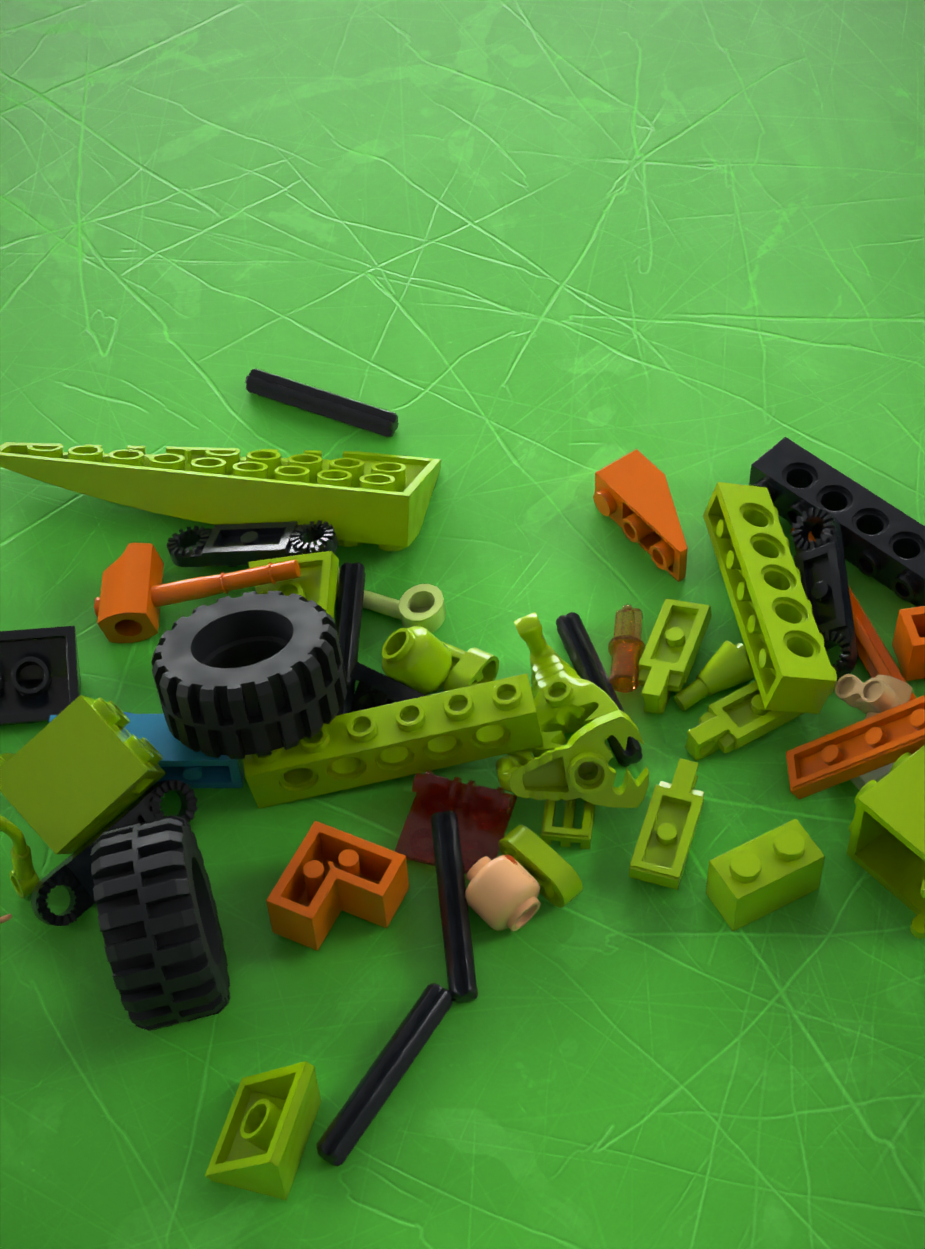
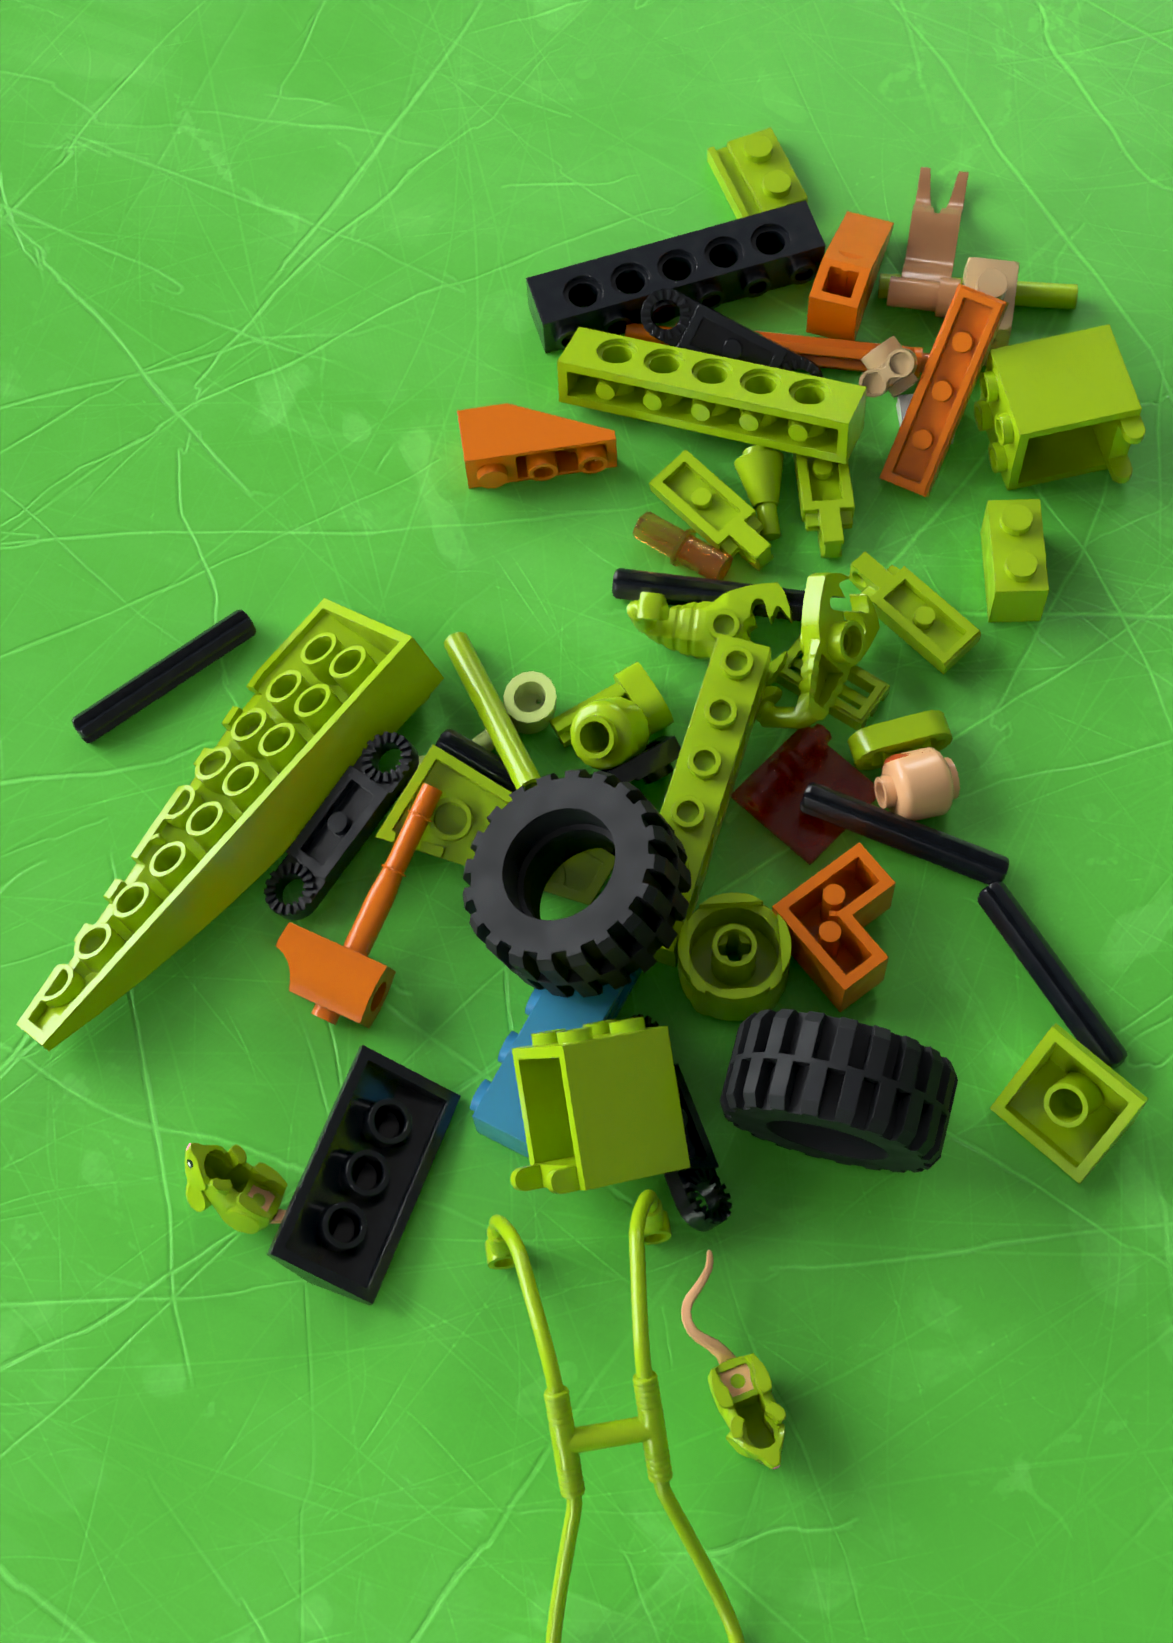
camera: 60 degrees left, 15 degrees up
(265, 823) = (739, 926): none -> lime brick
(393, 588) = (491, 711): none -> lime piece

